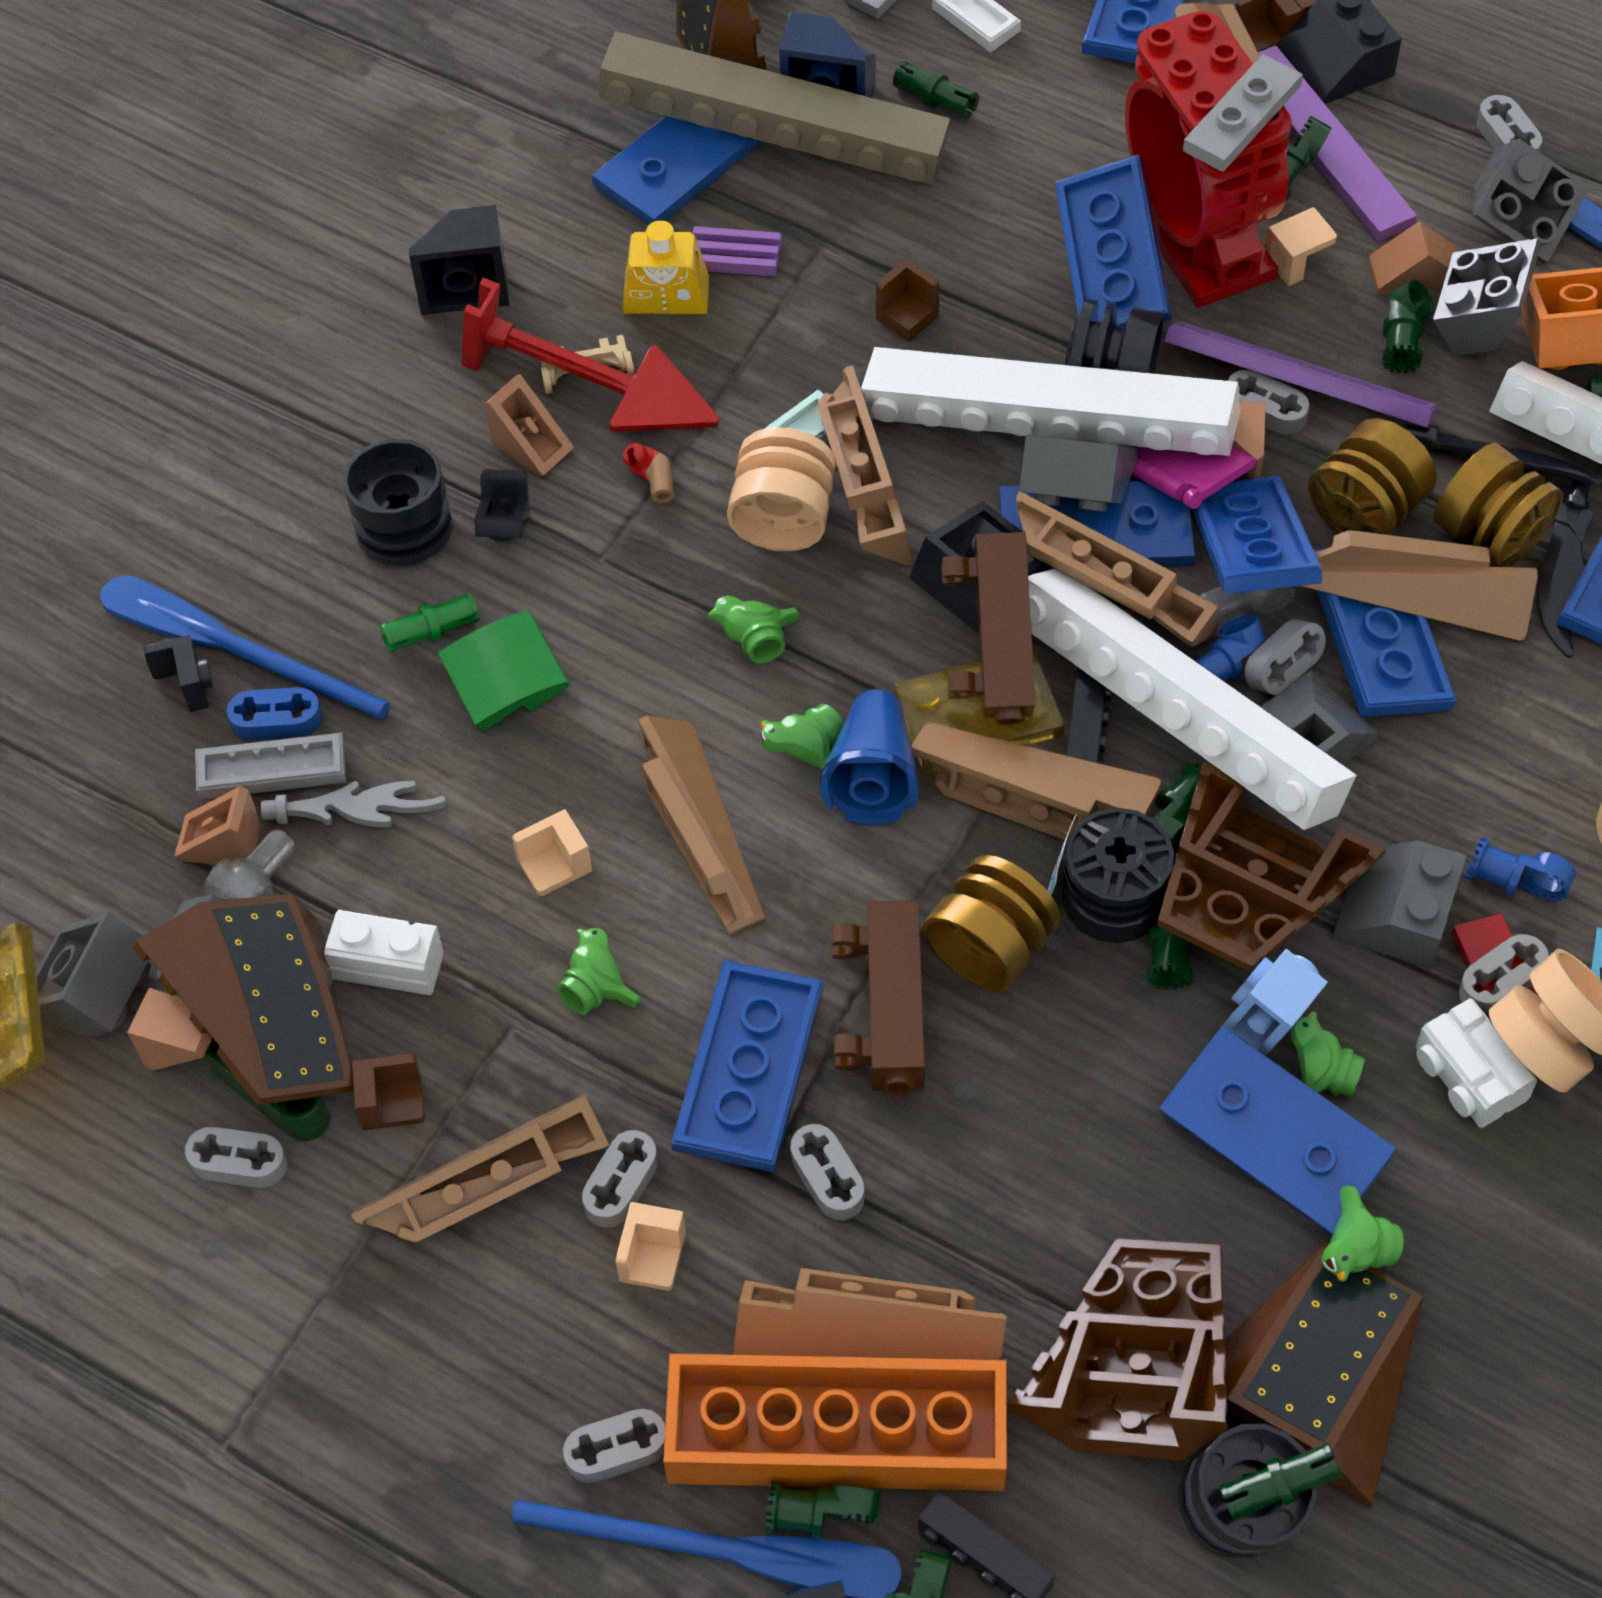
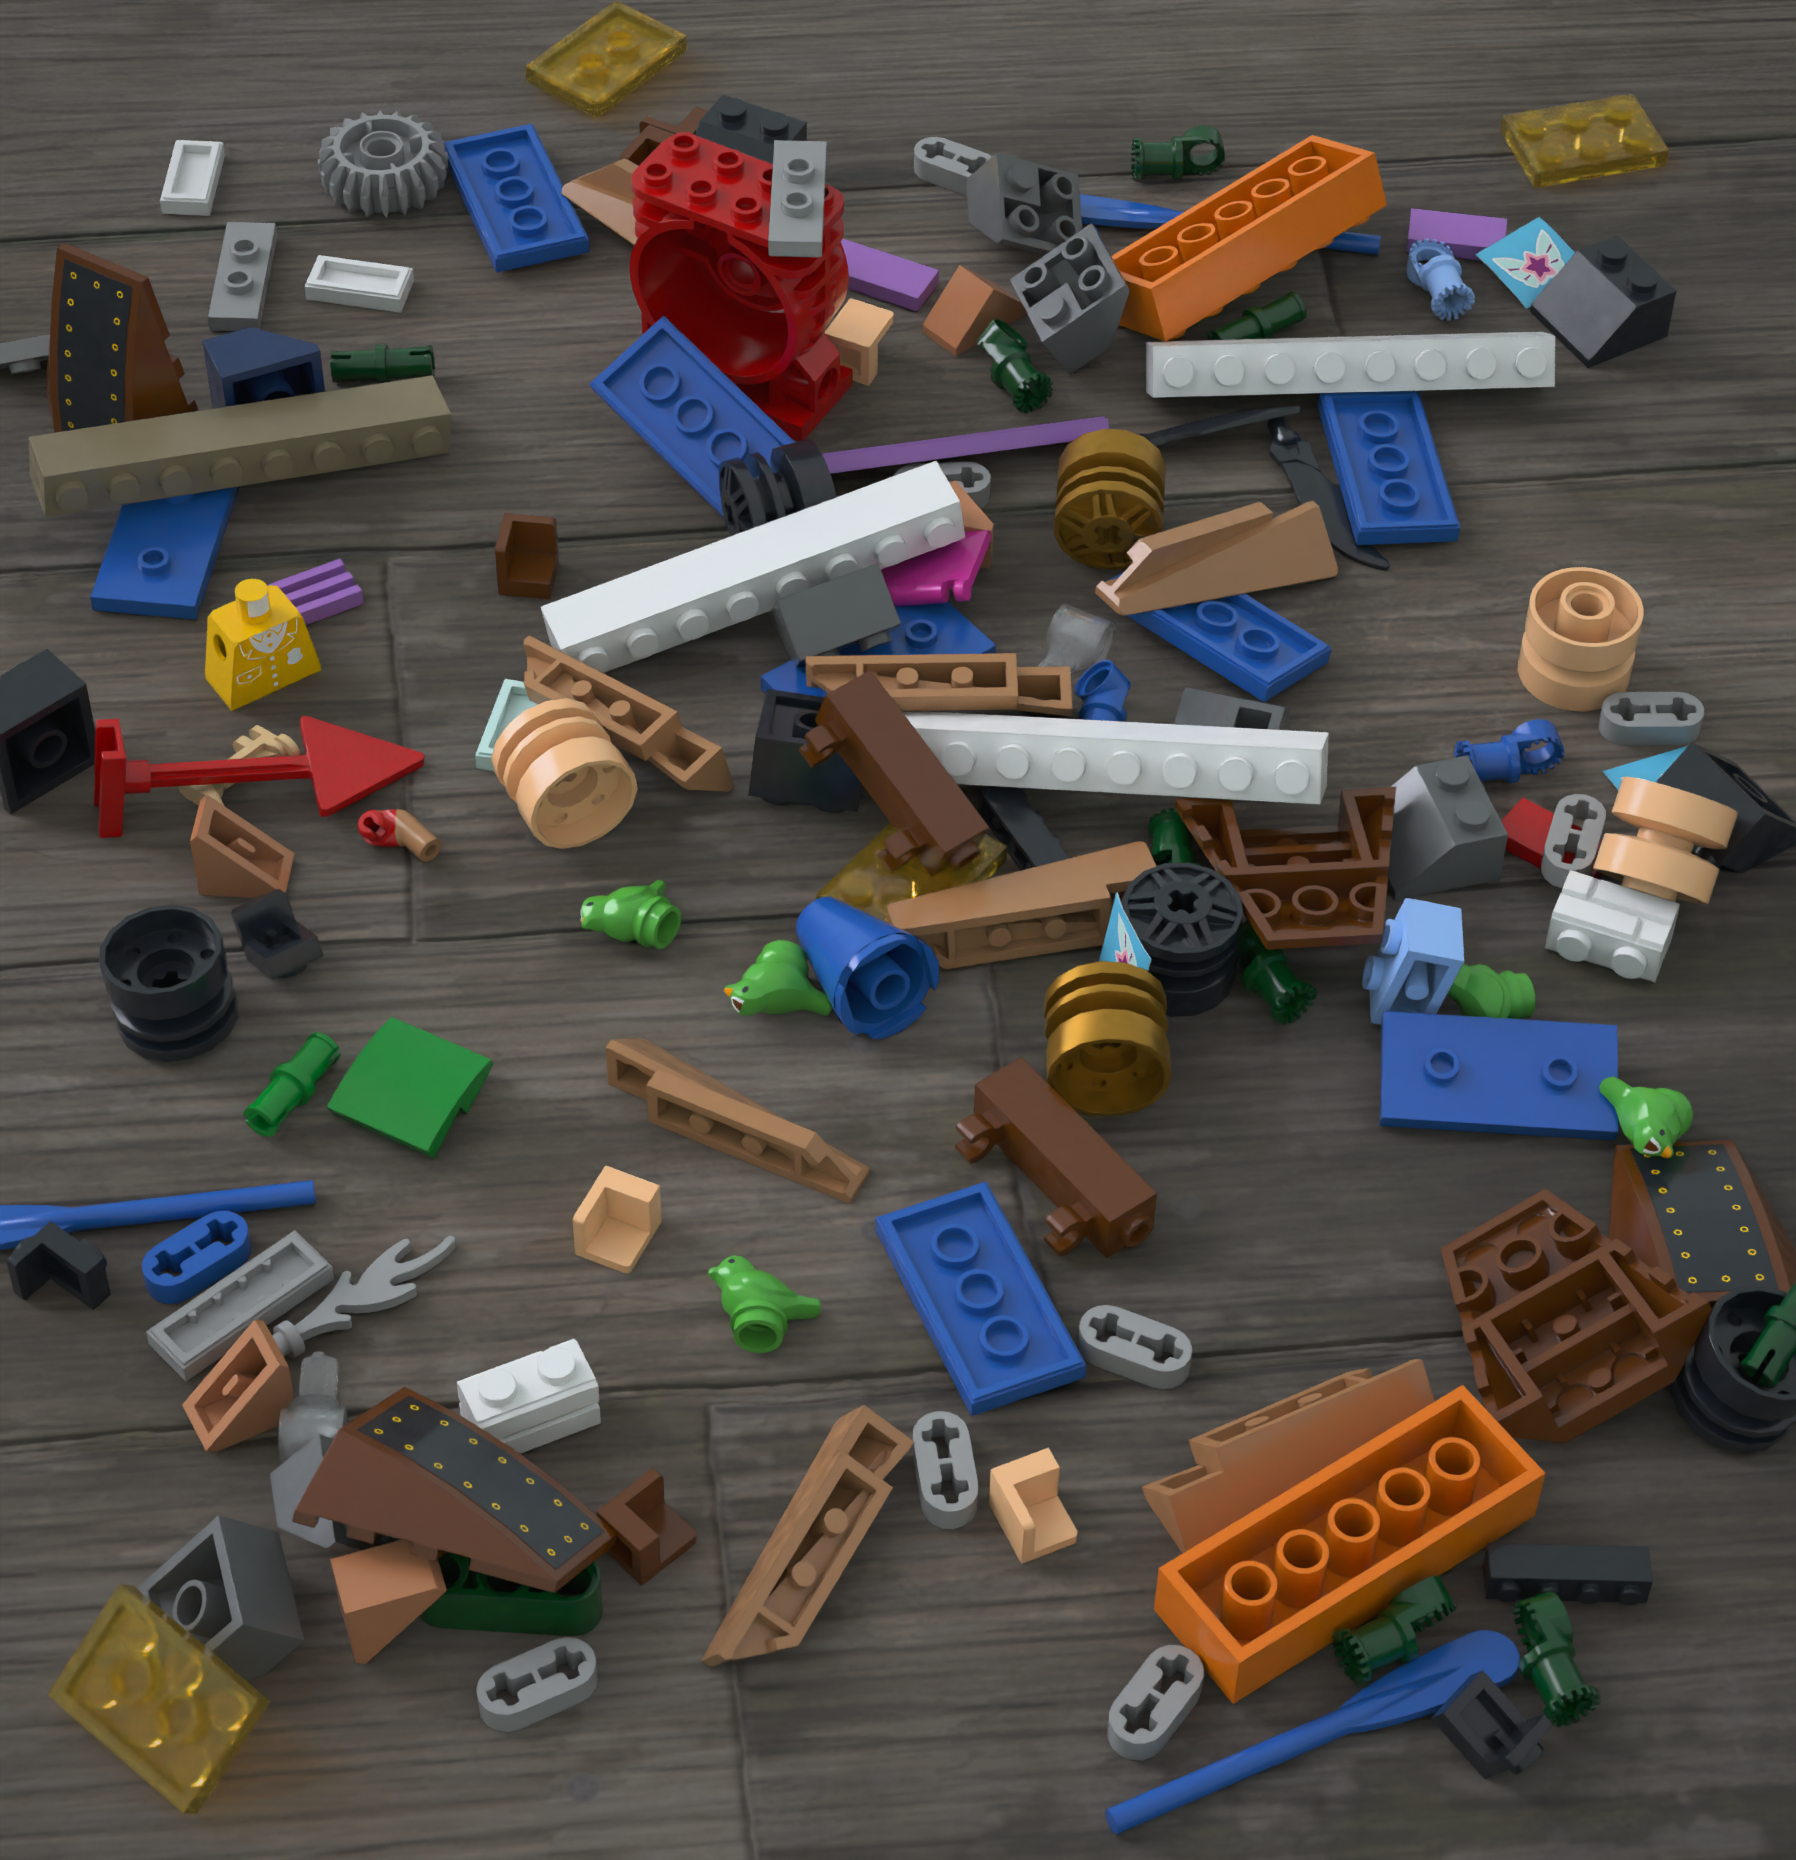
camera: 40 degrees left, 10 degrees down
(1256, 537) = (1051, 593): blue plate -> none
(1287, 660) = (1155, 684): light grey beam -> none
(1498, 505) = (1236, 464): pearl gold wheel -> none

